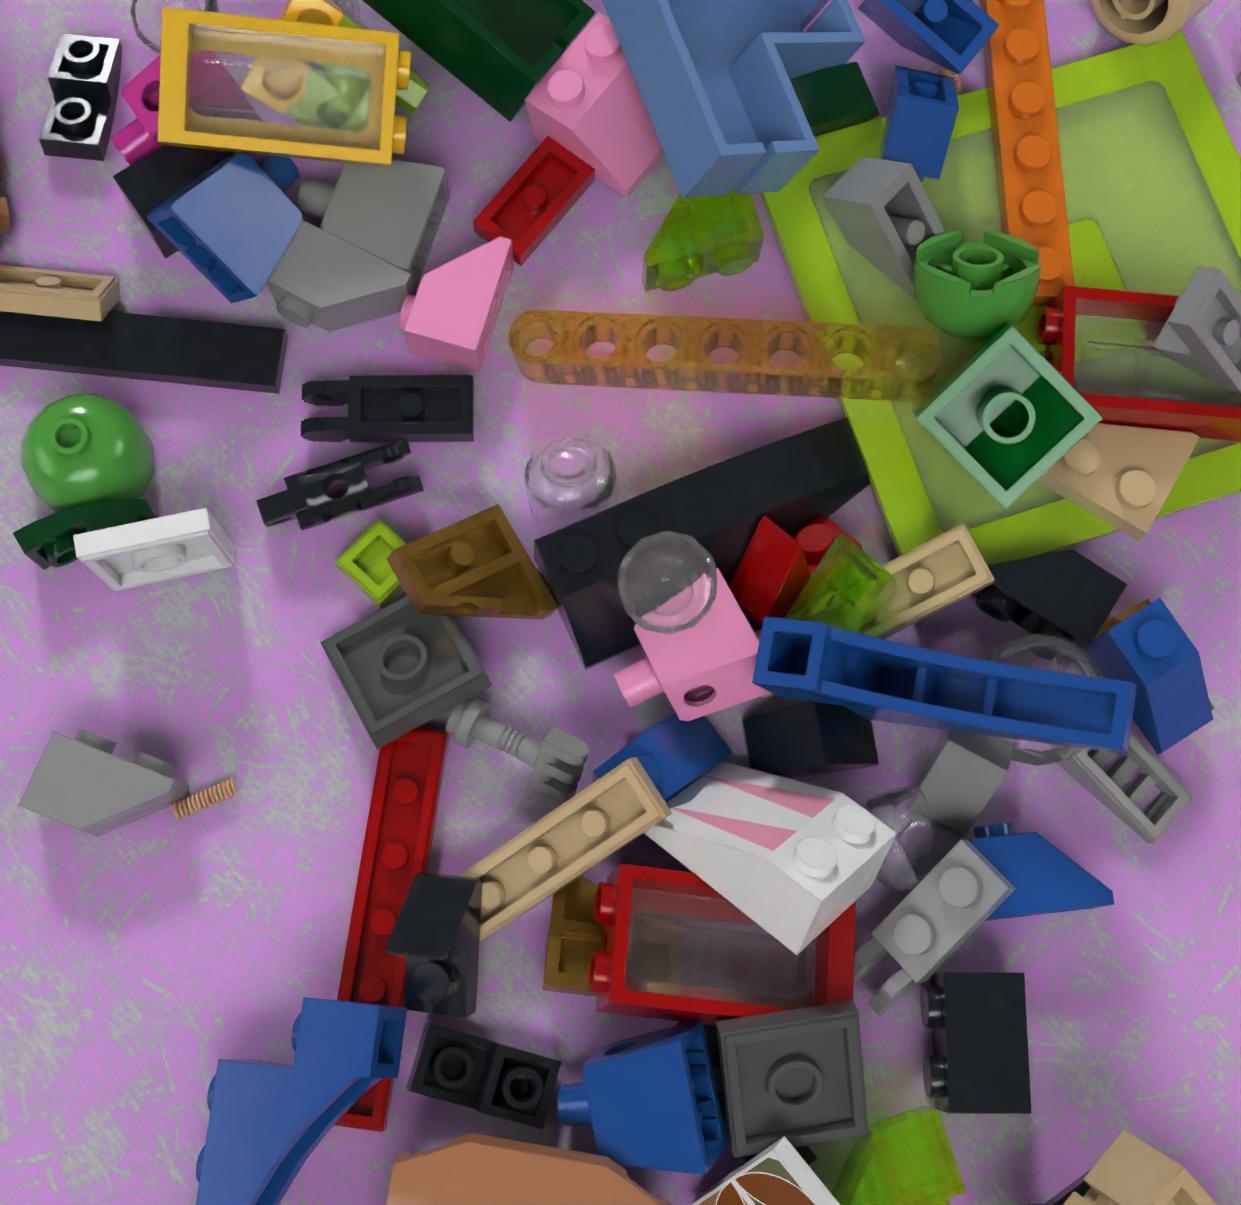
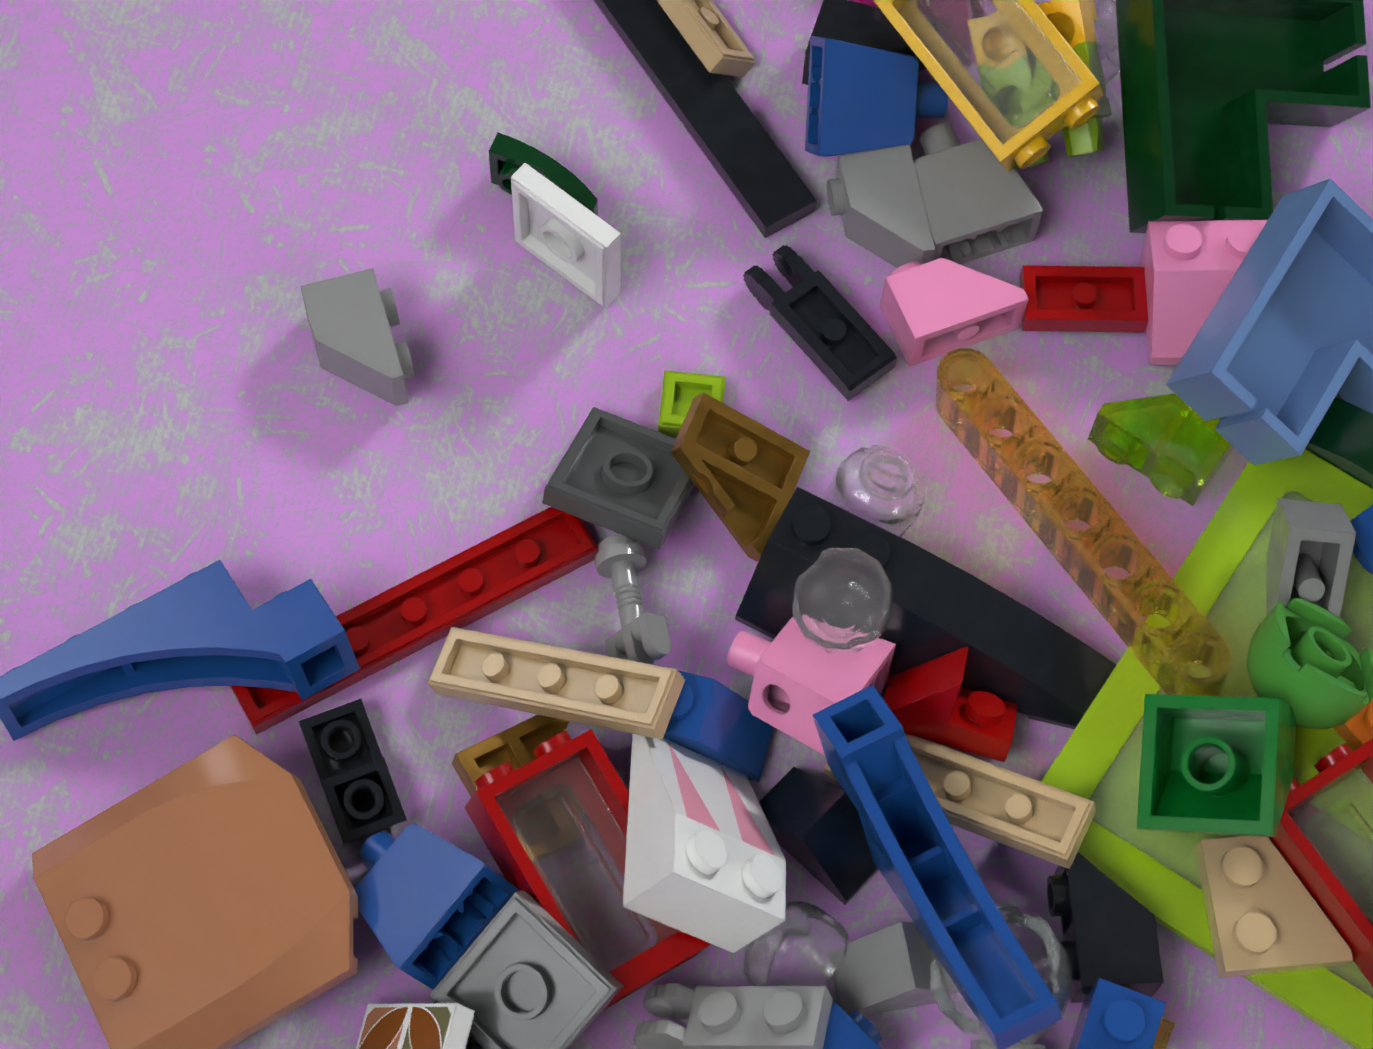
camera: 55 degrees right, 10 degrees down
(86, 453) = (603, 139): bright green cylinder -> none
(222, 786) = (406, 419): light nougat leg -> none
(307, 490) = (703, 312): black hinge -> none
(441, 943) = (438, 652): black slope -> none
(844, 589) = (958, 745): clear neon green slope -> none

